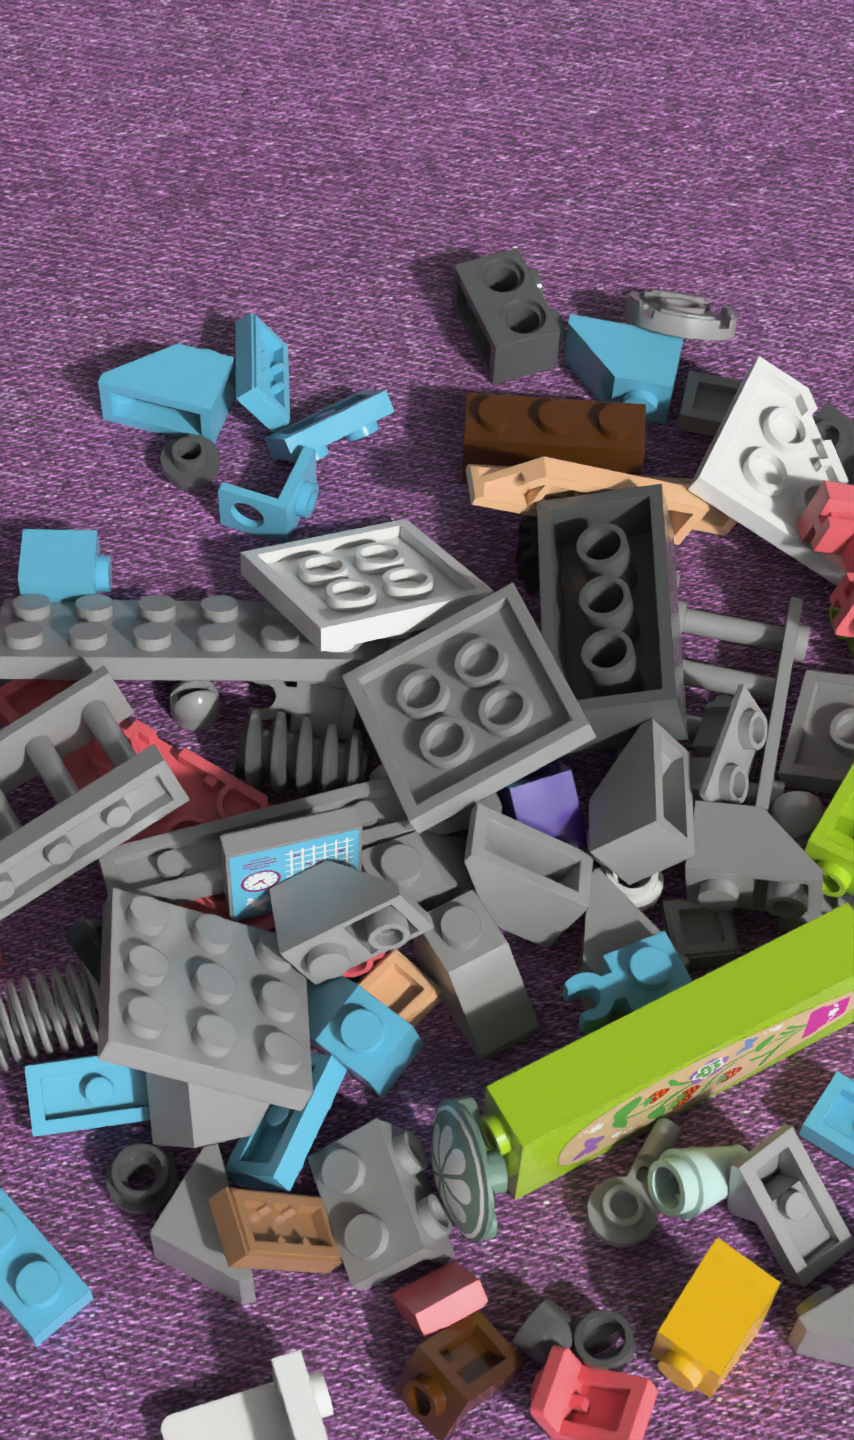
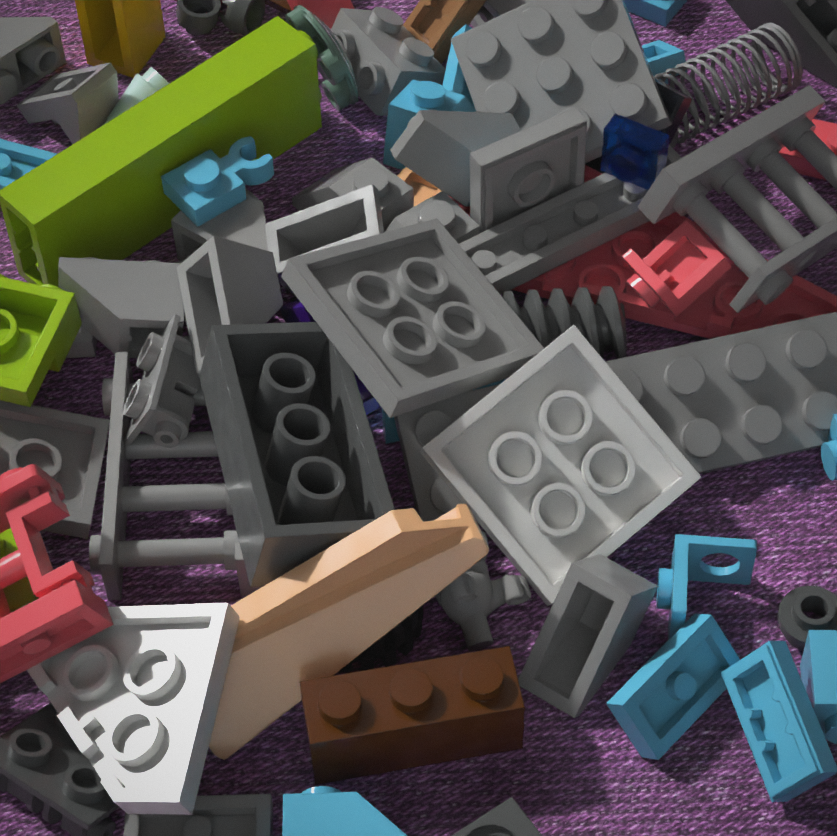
camera: 170 degrees right, 5 degrees down
(167, 857) = (633, 151): none -> clear blue plate
(191, 752) = (676, 269): none -> coral bracket
(380, 480) = (586, 632): none -> light grey slope
(477, 544) = (475, 597): none -> light grey piece
(797, 814) = (86, 364): light grey hinge -> none

